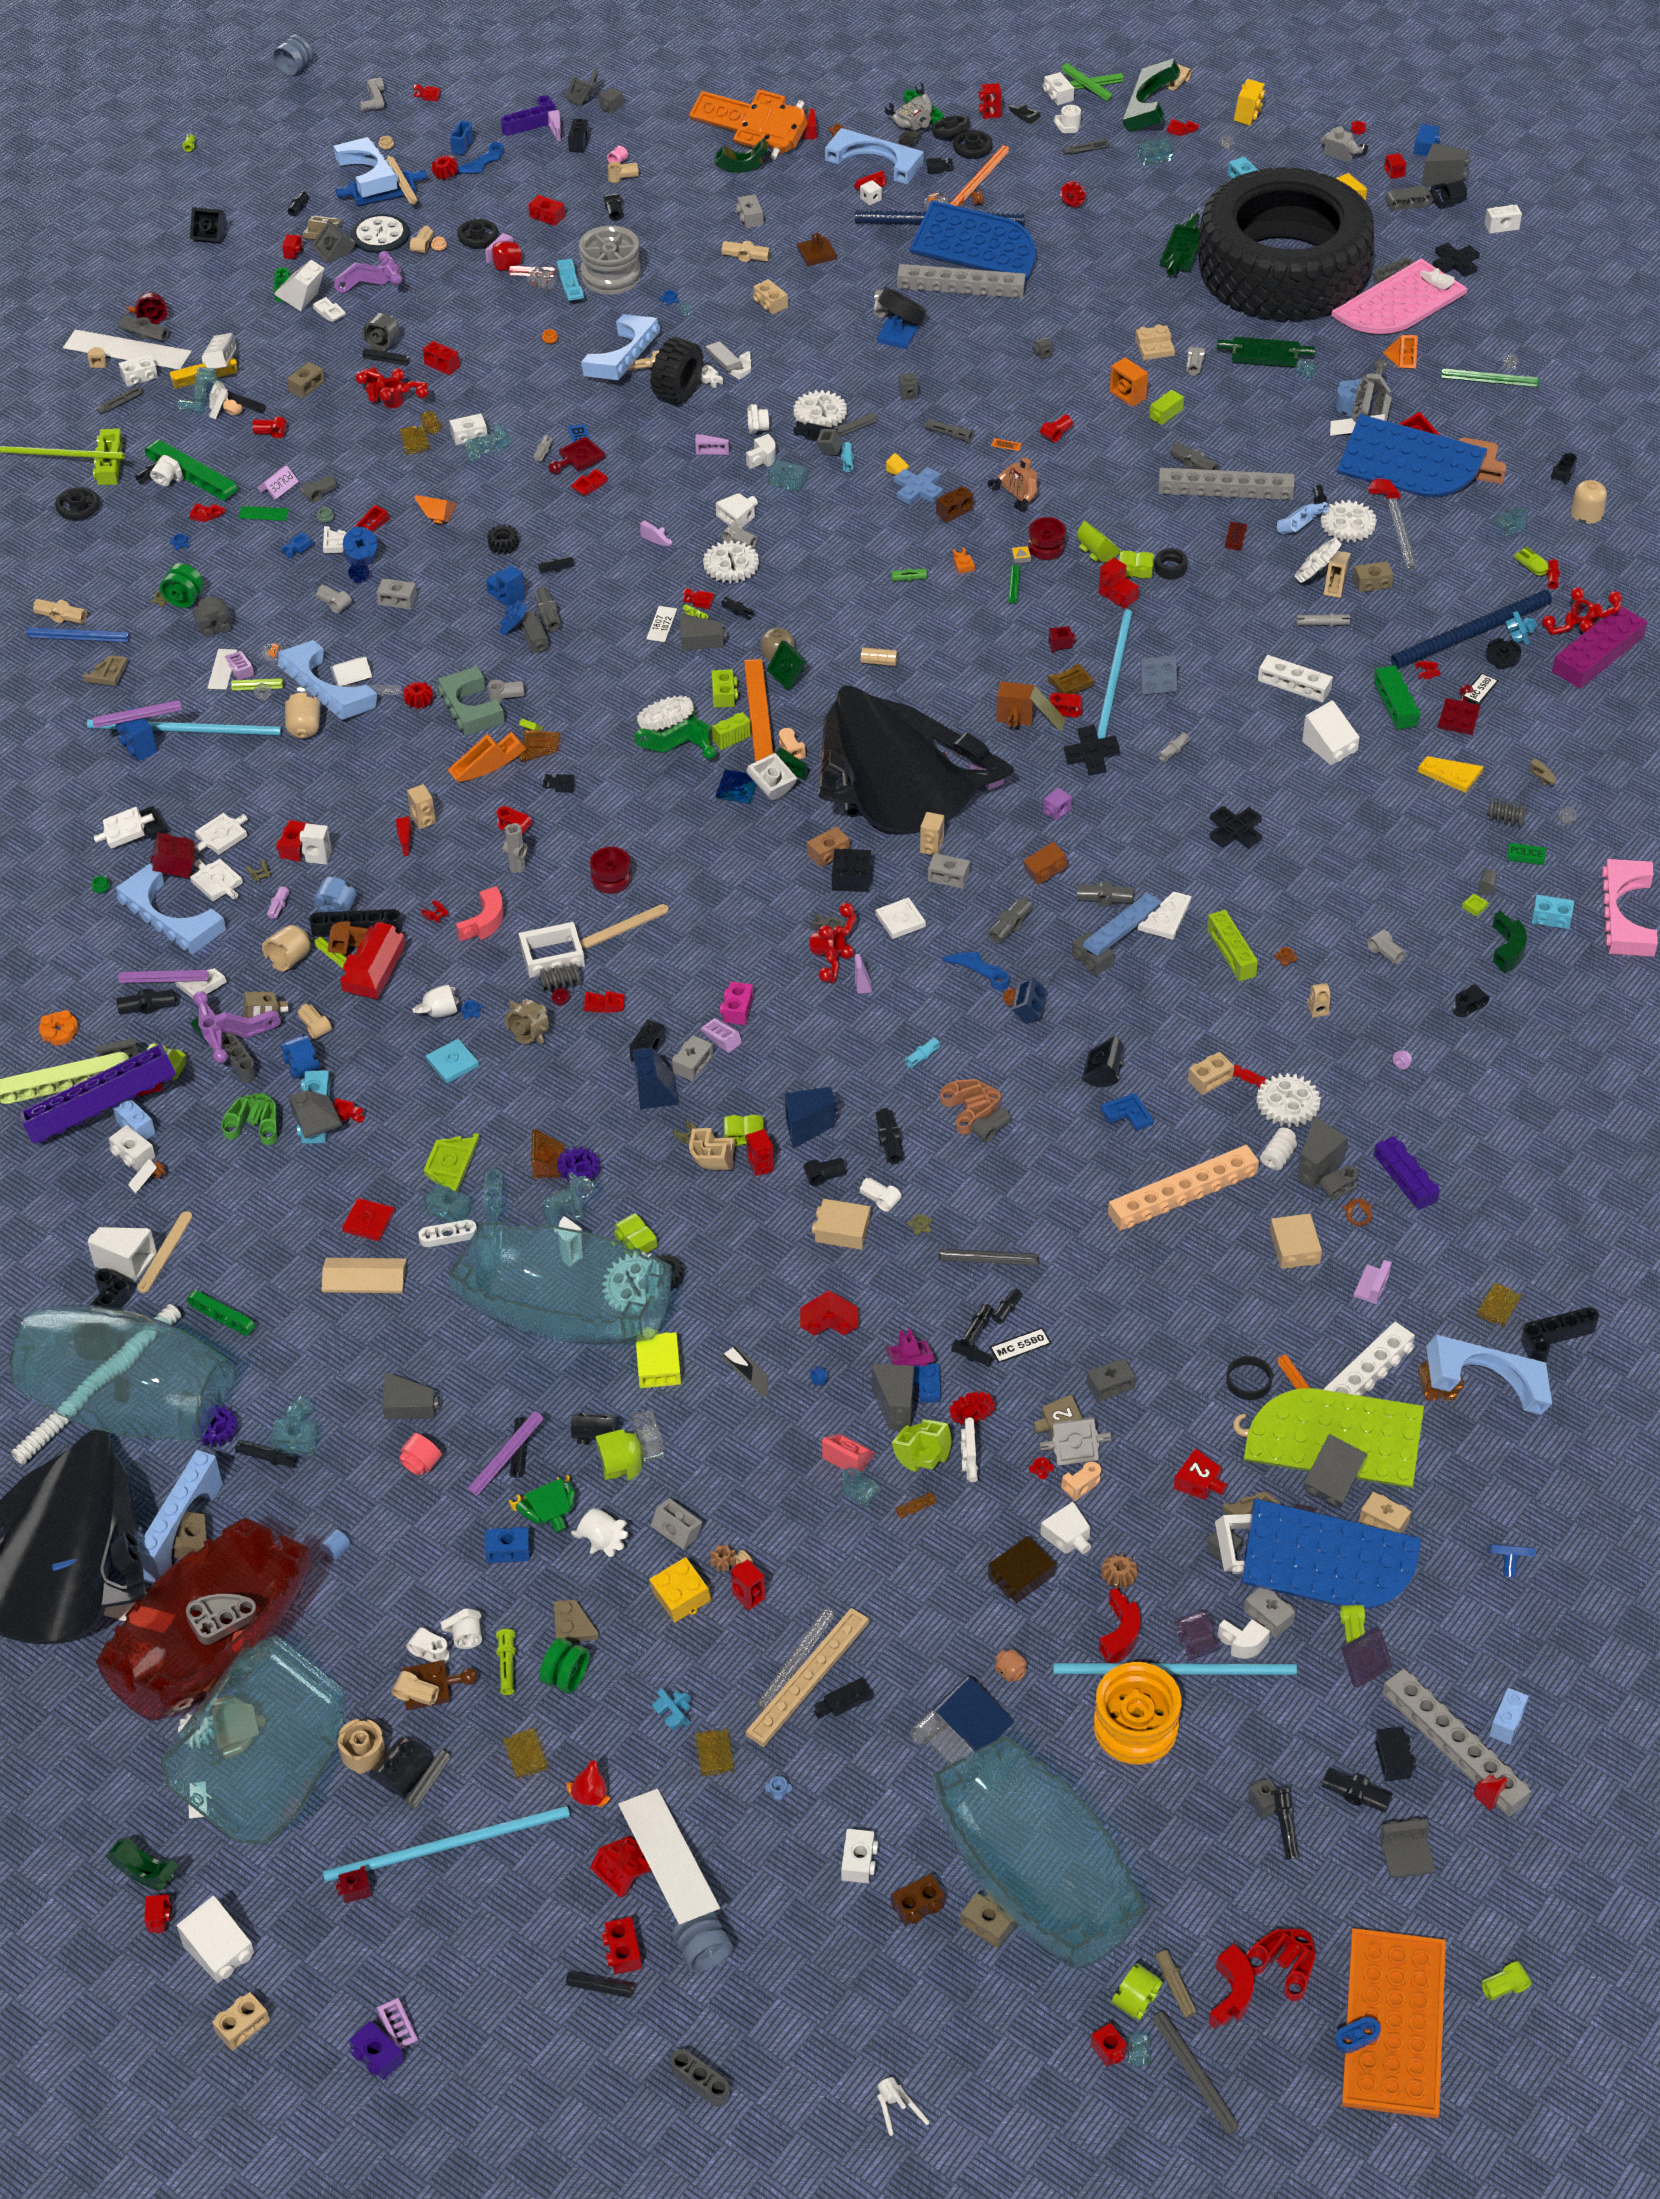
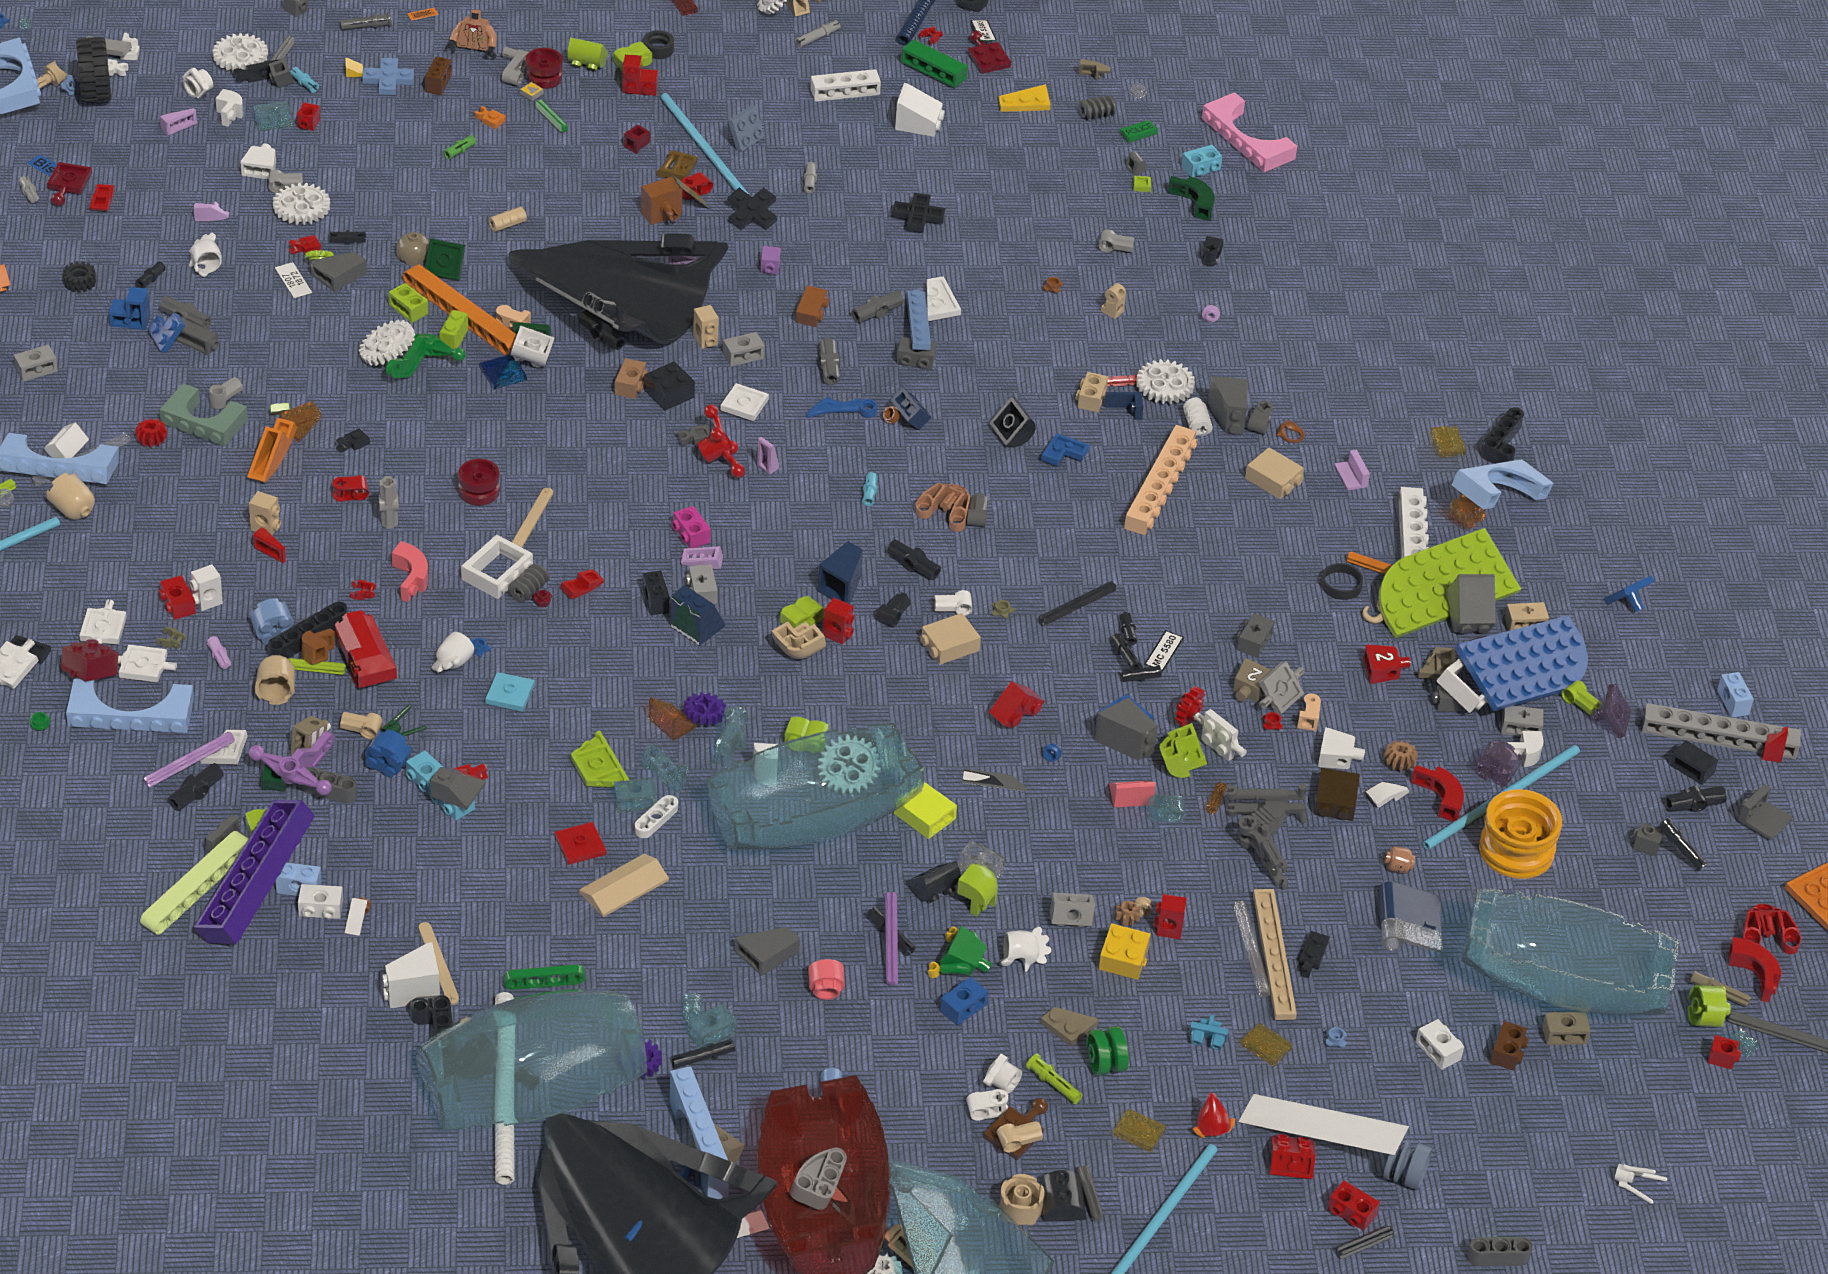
camera: 45 degrees left, 5 degrees down
(58, 1019) = (135, 841): orange plate -> none
(251, 1109) = (399, 812): bright green connector -> none
(331, 1038) = (395, 726): none -> dark green plant
(527, 1021) = (546, 626): dark tan brick -> none
(610, 565) = (206, 253): none -> white piece
(683, 1137) = (761, 637): olive piece -> none
(814, 490) = (308, 116): none -> red brick
(909, 1352) = (1101, 695): magenta plate -> none
(920, 1554) = (1265, 821): none -> dark grey piece
(1019, 530) = (513, 72): none -> light grey beam
(1068, 1596) = (1384, 792): none -> white slope
(1232, 945) = (1010, 295): lime brick -> none
(1237, 1100) = (1125, 400): none -> dark blue bracket
(1406, 1172) = (1296, 387): dark purple brick -> none

